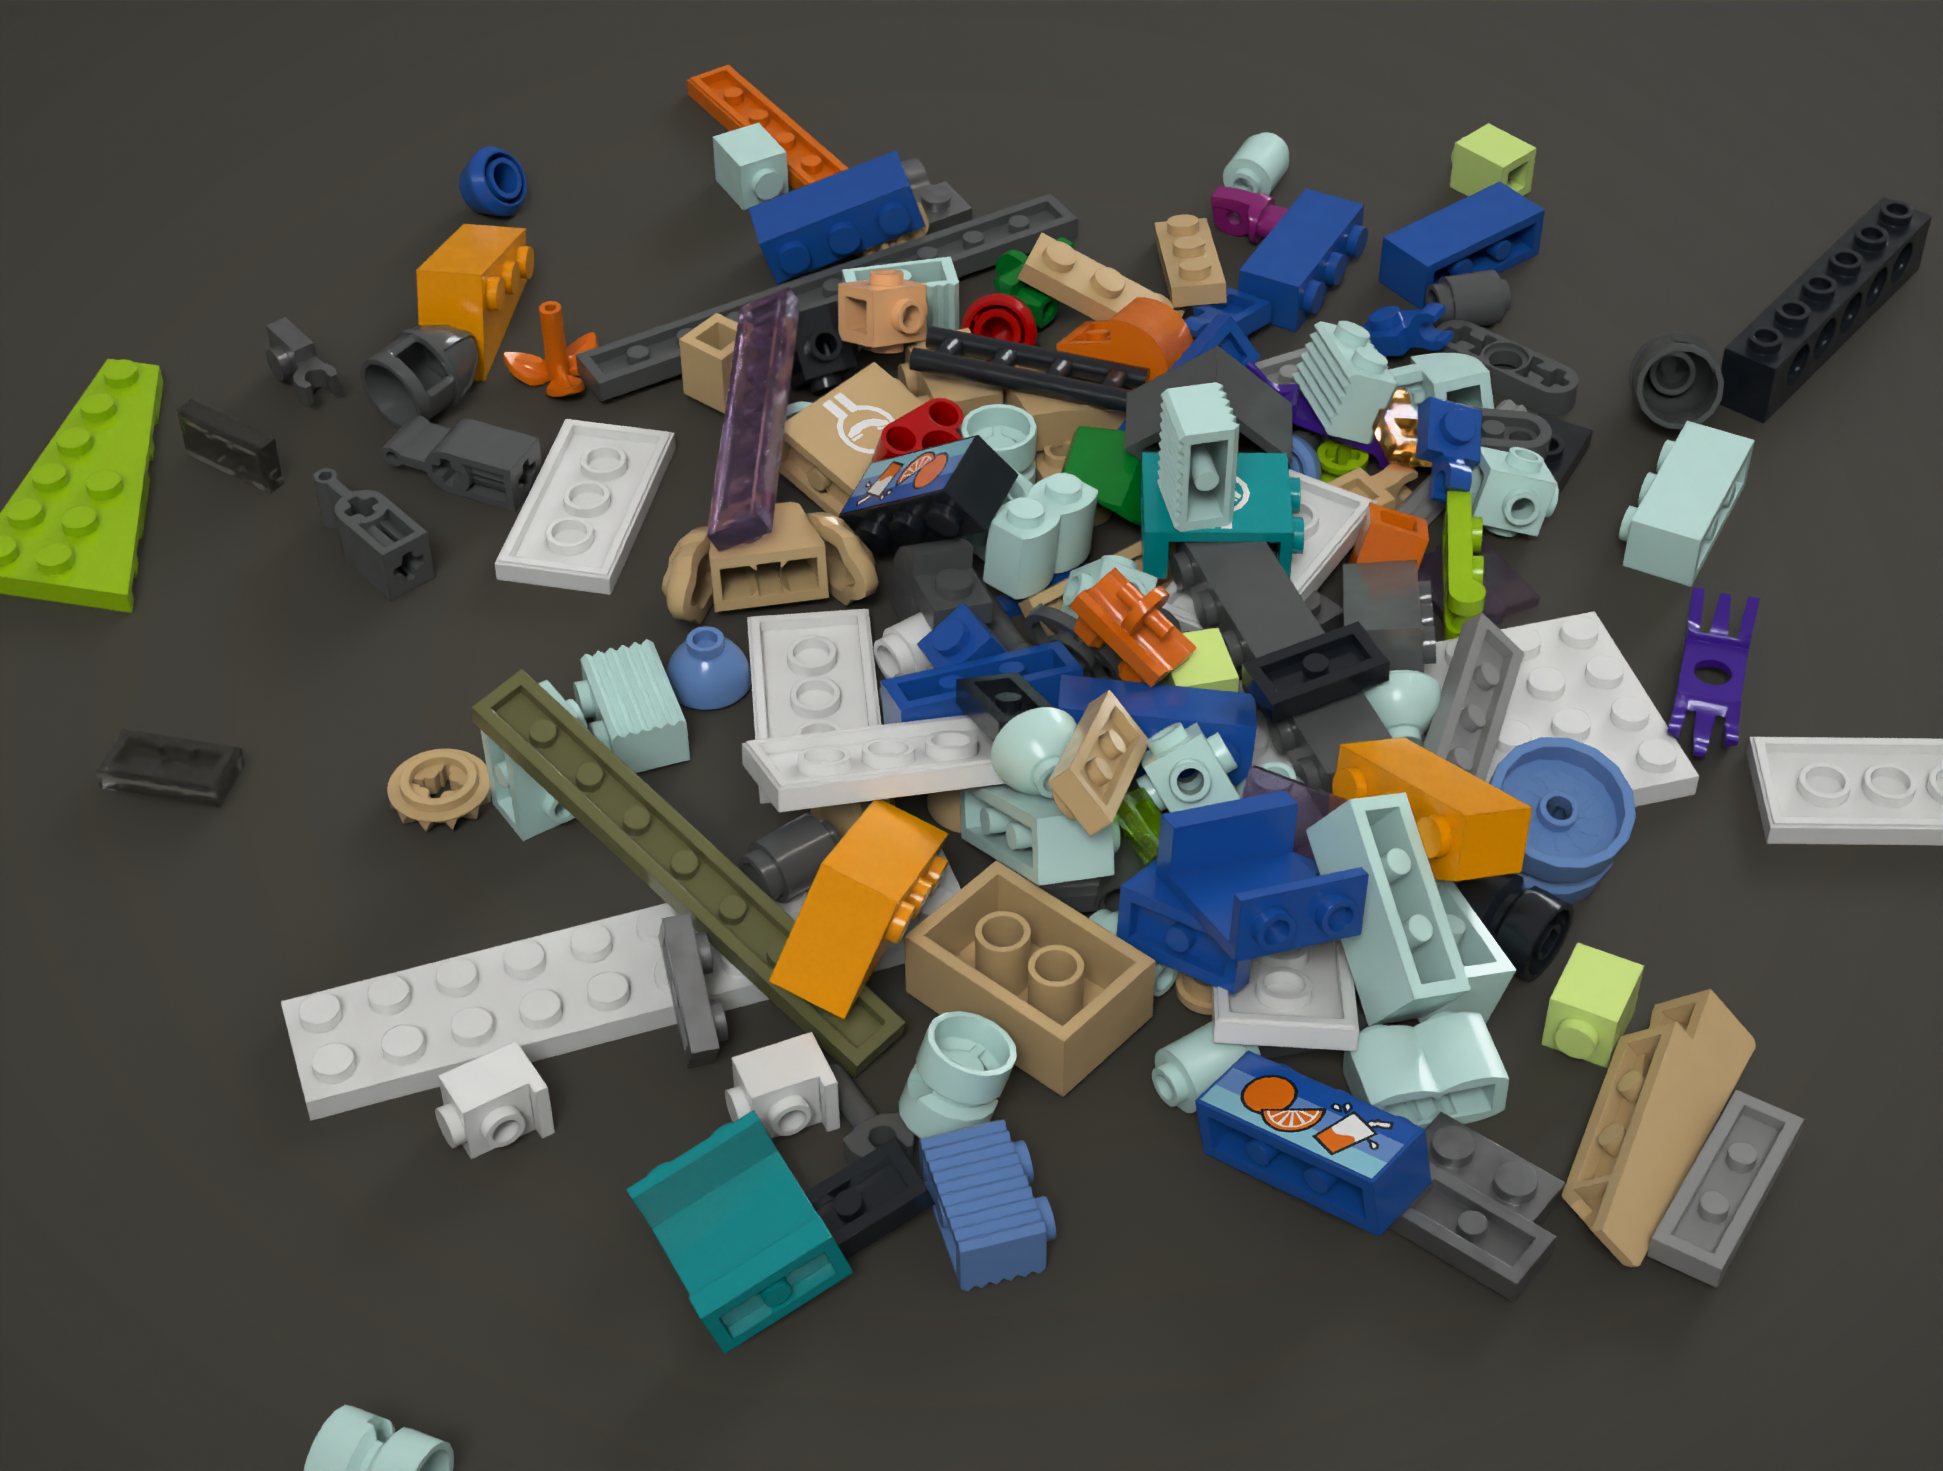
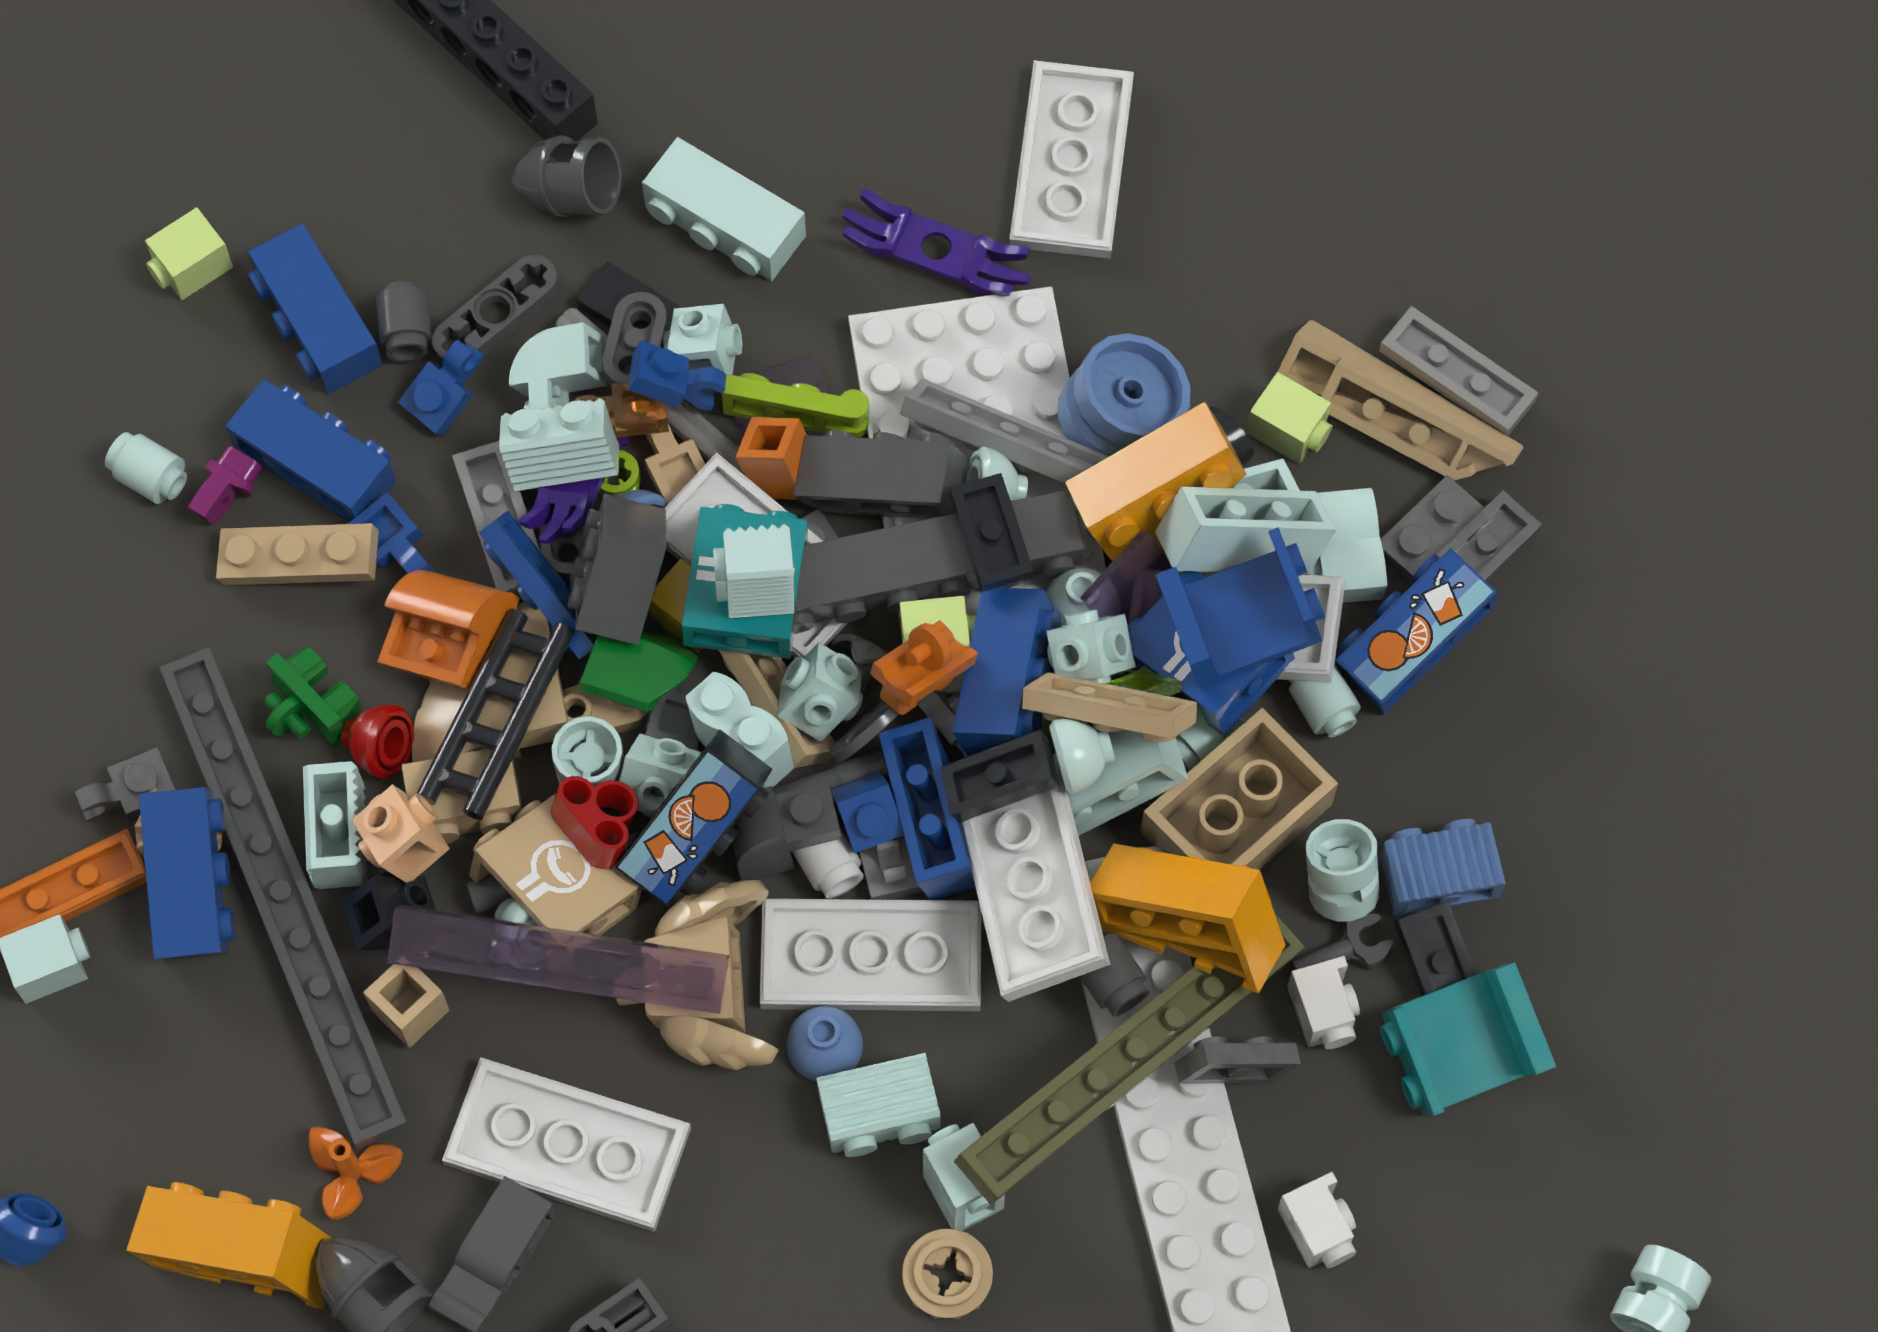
camera: 85 degrees left, 25 degrees up
(1081, 281) = (345, 645): tan plate -> none

